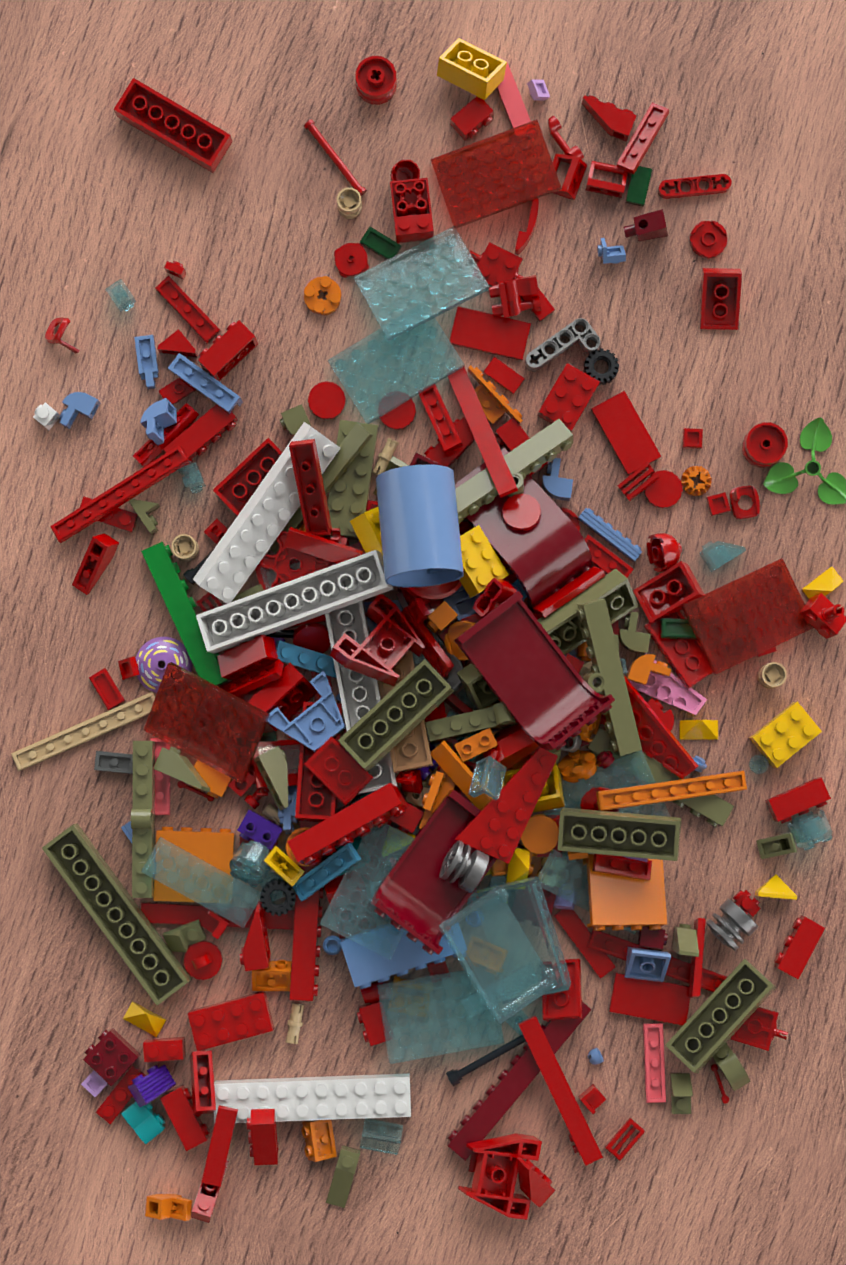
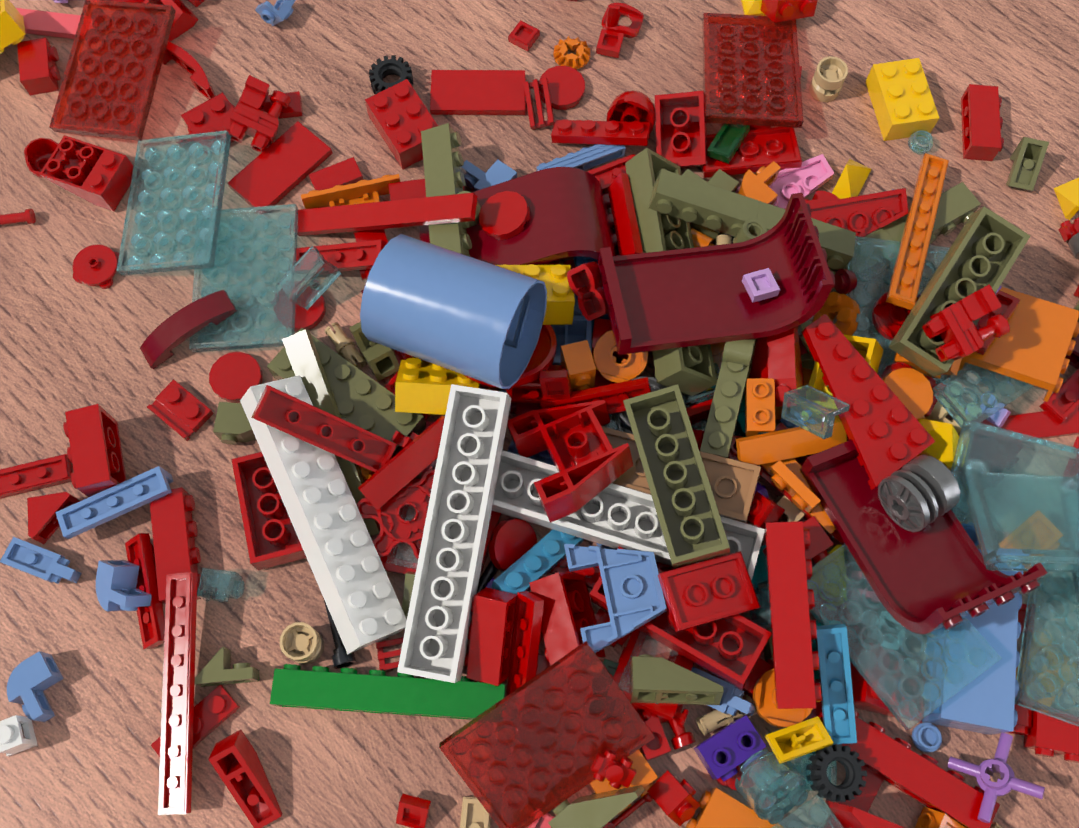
camera: 60 degrees left, 15 degrees down
(154, 652) = (412, 763): medium lavender dish -> none
(176, 390) = (102, 544): red plate -> none
(209, 768) = (616, 772): none -> red piece
(215, 812) = (674, 797): none -> red brick
(216, 531) = (307, 594): red tile -> none
(286, 379) = (180, 410): none -> red plate
(321, 306) = (103, 307): orange plate -> none
(328, 984) = (1002, 786): none -> medium lavender bar
(340, 349) = (184, 324): none -> dark red slope
(349, 203) = (30, 230): tan wheel -> none
(380, 244) = (101, 227): dark green tile -> none
(413, 408) = (309, 278): none -> clear light blue panel
(550, 705) = (760, 285): none -> lavender plate
(559, 347) = (341, 79): light grey beam -> none
(587, 841) = (957, 325): none -> red hips
(637, 537) = (601, 132): none -> red plate
(719, 553) = (665, 66): clear light blue slope -> none
(810, 829) = (1025, 118): clear light blue brick -> none

